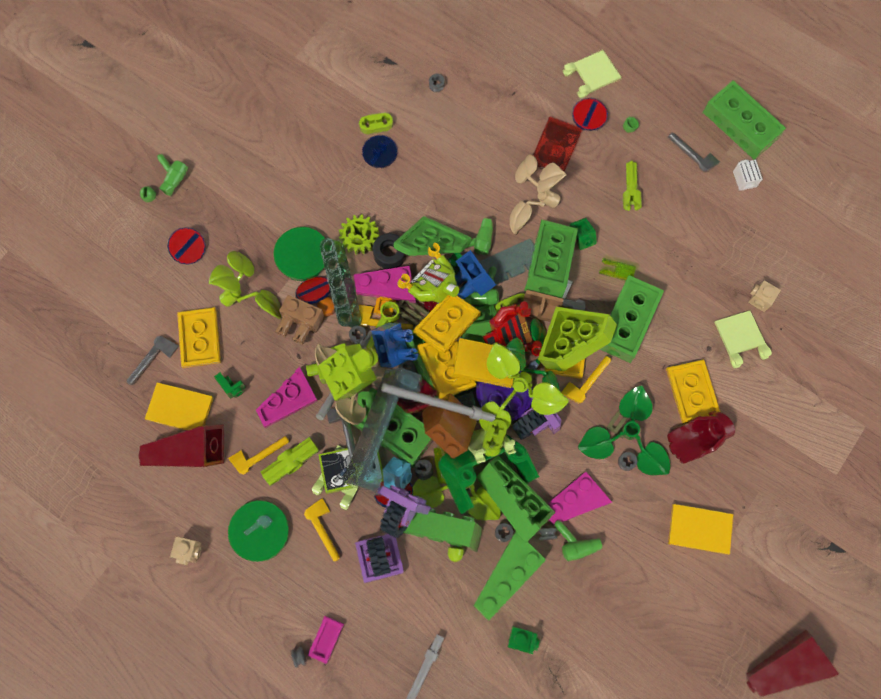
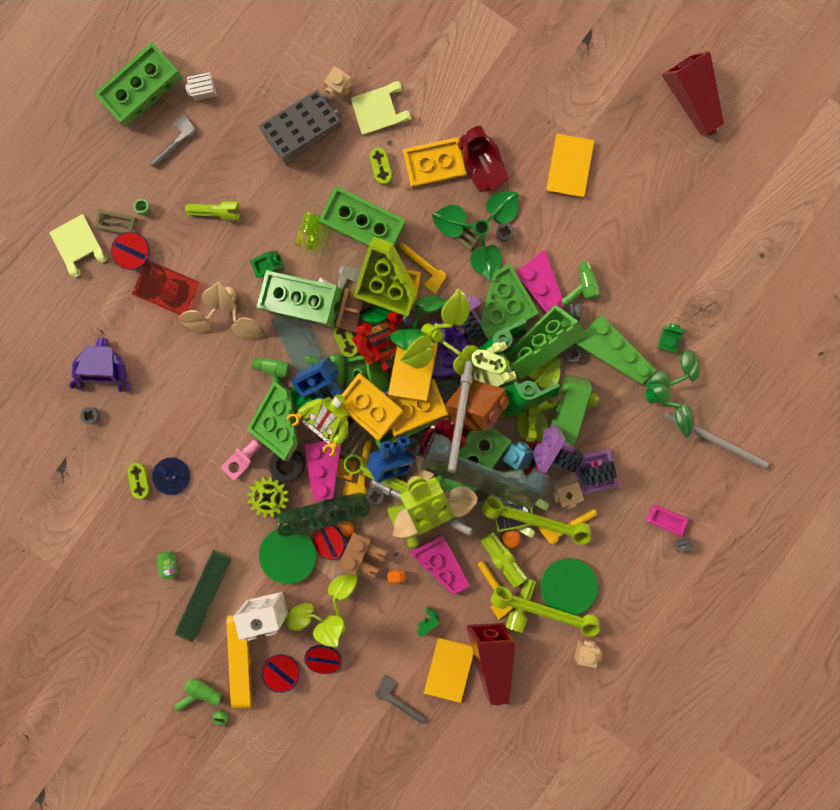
camera: 85 degrees left, 15 degrees up
(197, 285) = (323, 659): none -> red piece
(199, 337) = (376, 654): yellow tile -> none
(200, 209) = (239, 668): none -> yellow beam
(227, 475) = (517, 619): none -> lime piece
(232, 506) = (545, 611): none -> lime piece
(243, 220) = (260, 616): none -> white brick
(264, 521) = (561, 581): clear light blue hand -> none
(265, 177) = (203, 596): none -> clear green beam
(276, 354) = (396, 576): none -> orange tile
(295, 146) = (167, 565): none -> bright green brick
(311, 470) = (511, 538): none -> orange tile
(328, 494) = (536, 520): none -> lime piece
(355, 528) = (568, 494): none -> tan brick
(365, 399) = (448, 487): bright green hinge -> none
(396, 211) = (242, 459): none -> bright pink bracket
(423, 464) = (507, 426): dark grey bush -> none
(440, 489) = (532, 413): none -> lime piece
(470, 619) = (660, 391): none -> green plant
(482, 88) = (99, 365): none -> dark purple torso
(556, 462) = (505, 302): none -> bright green plate
(612, 116) = (131, 226): none -> olive tile
(683, 334) = (385, 165): none -> lime beam
(717, 261) = (301, 126): none -> dark grey slope

